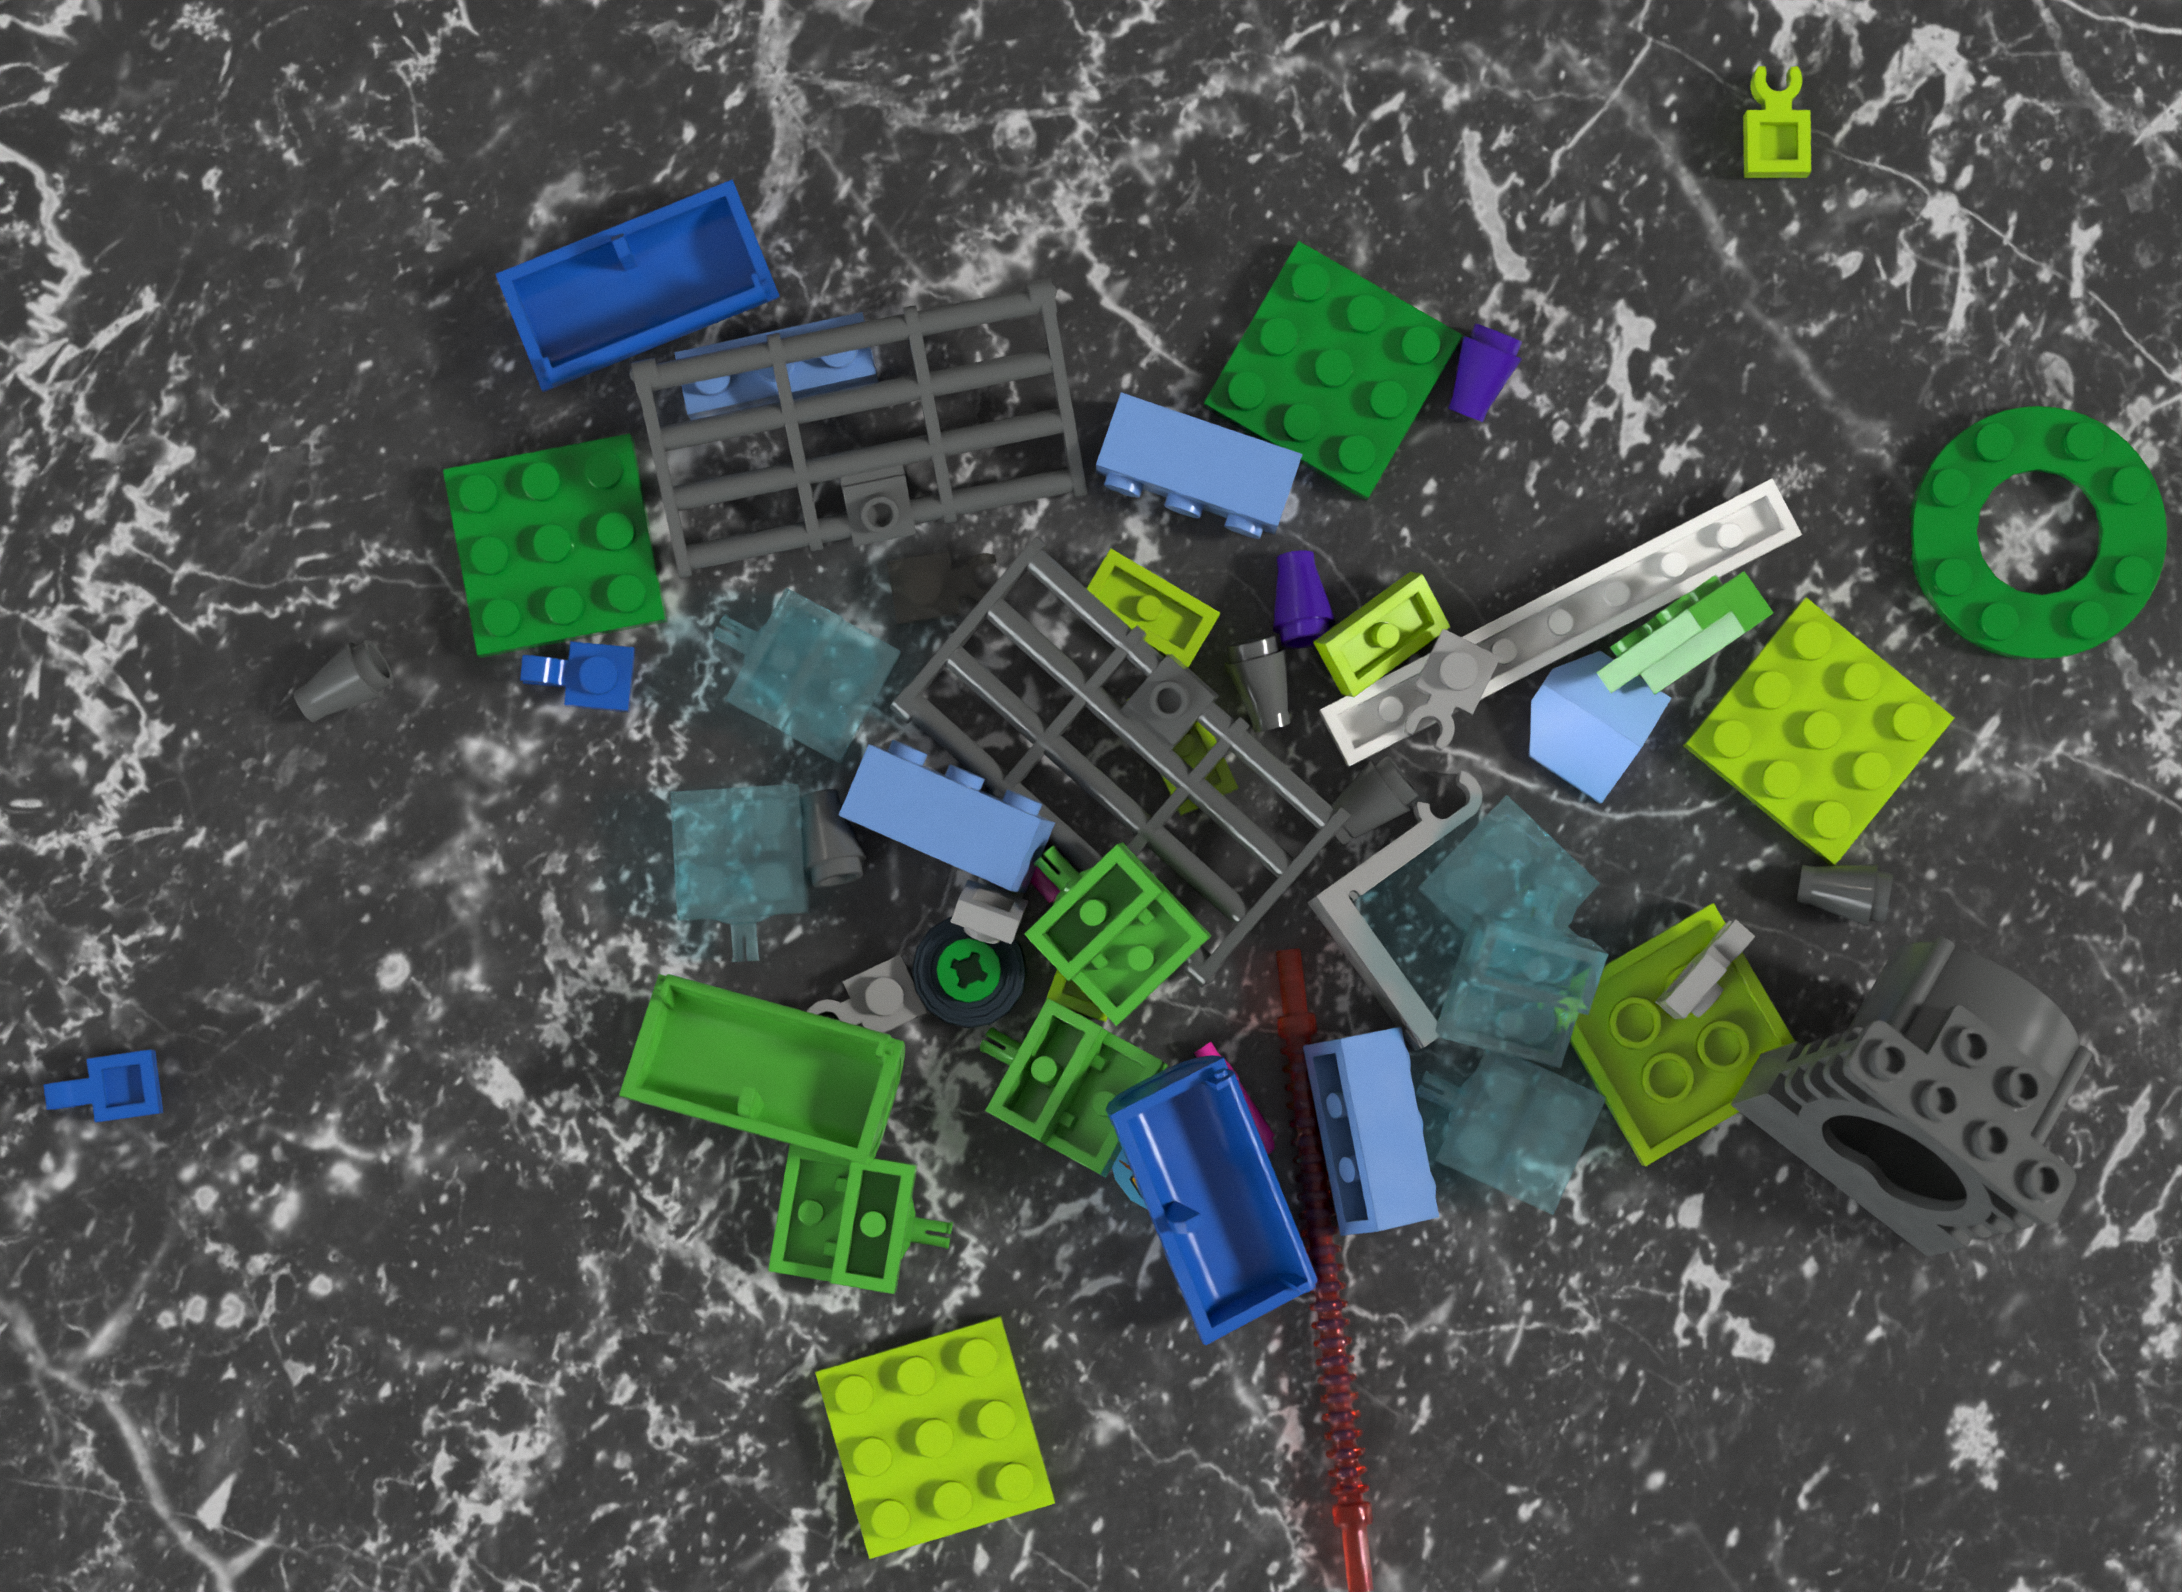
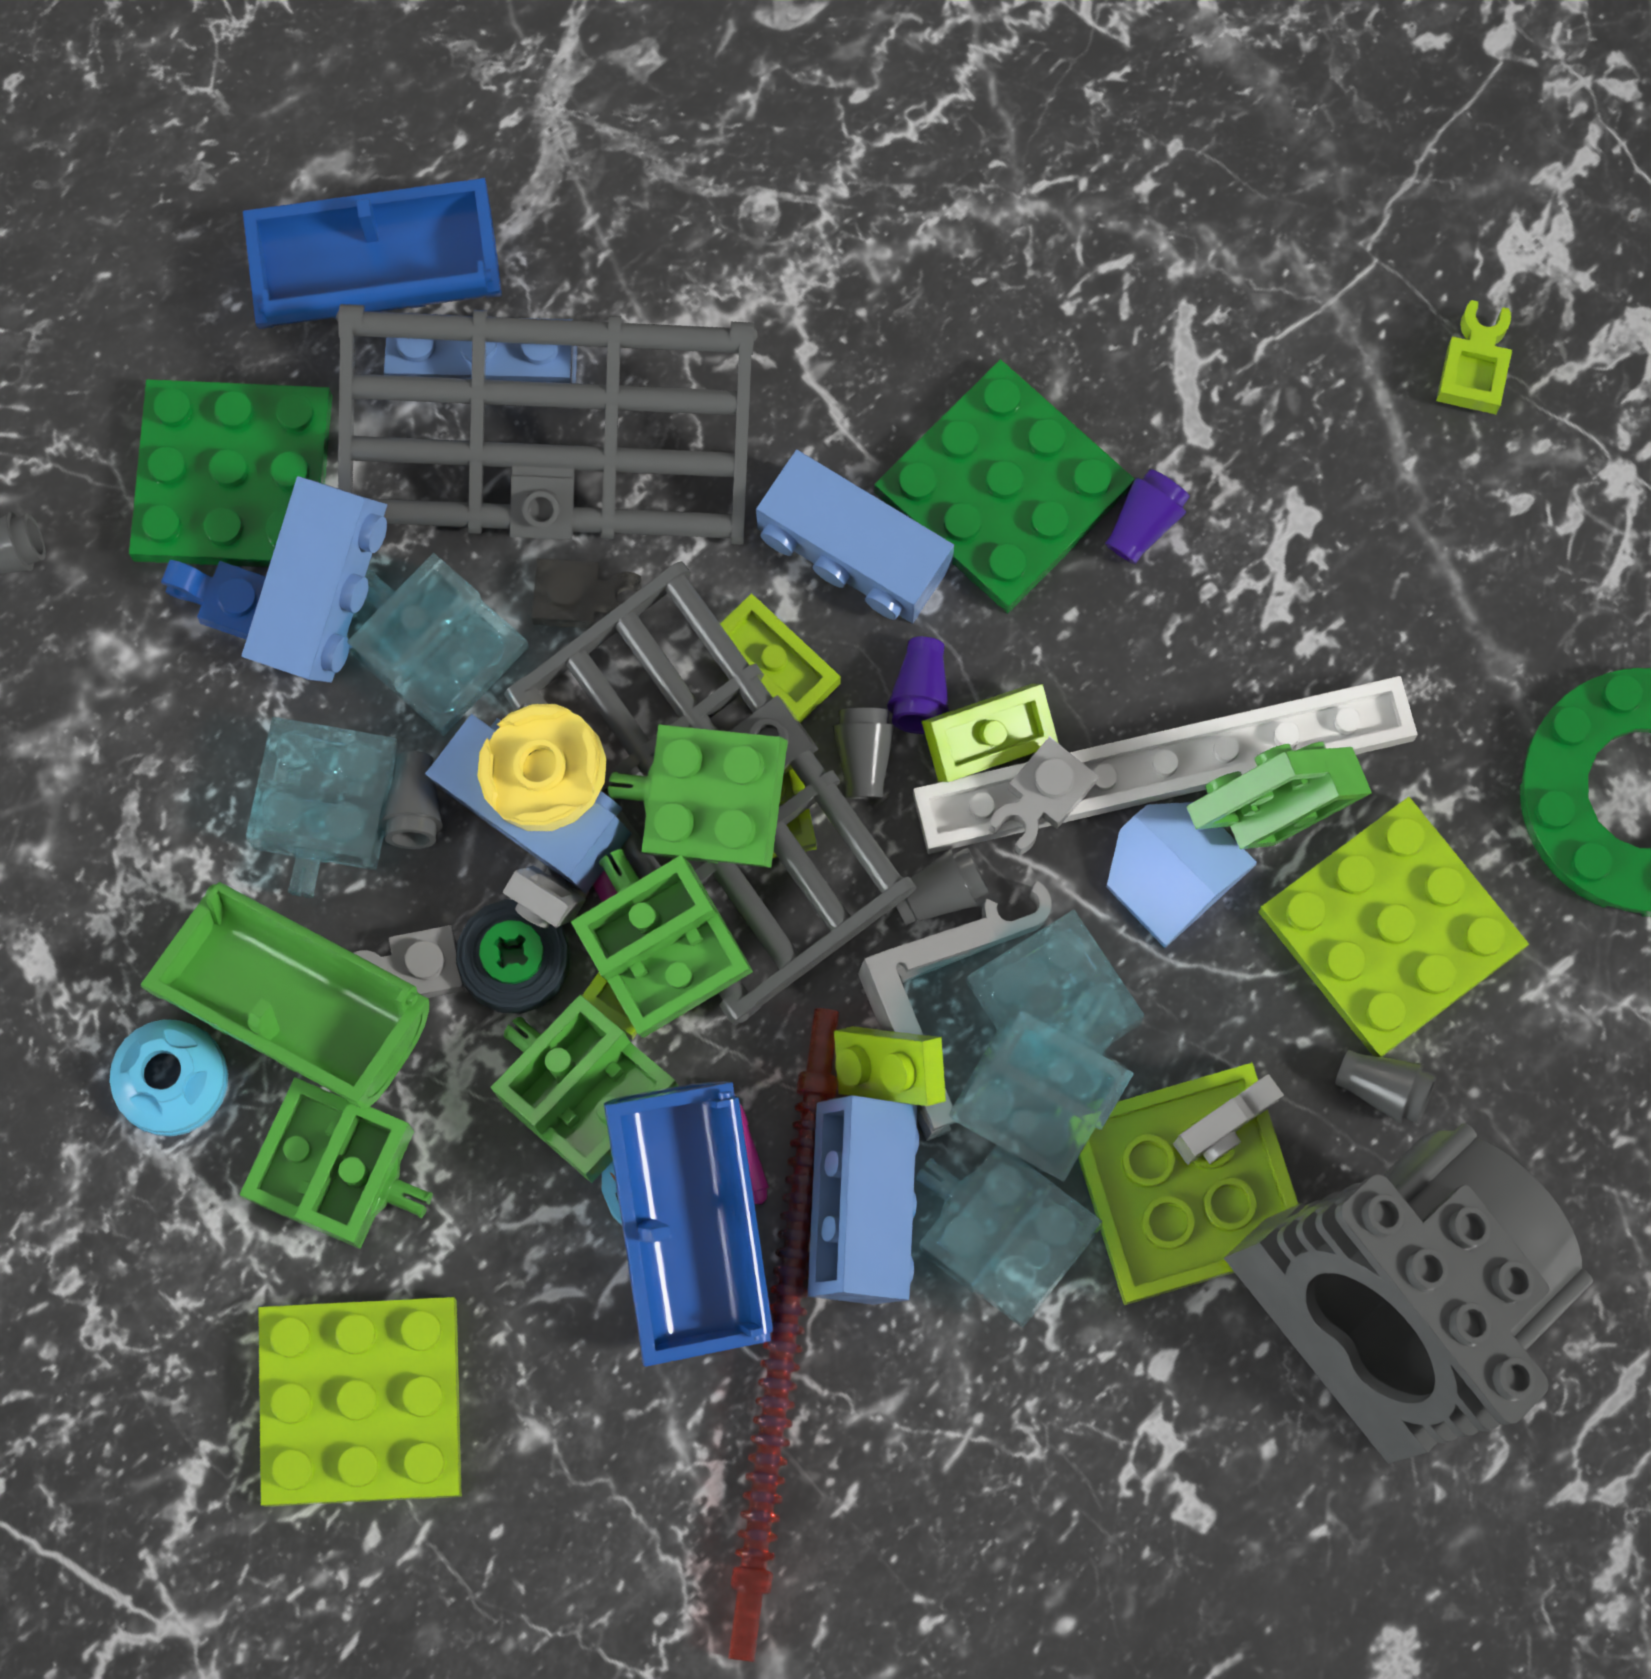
camera: 15 degrees right, 10 degrees down
(677, 644) = (315, 580): none -> medium blue brick
(698, 1164) = (192, 1097): none -> medium azure piece
(956, 787) = (542, 767): none -> light yellow tile
(1128, 776) = (709, 795): none -> bright green plate
(1366, 995) = (890, 1065): none -> lime plate

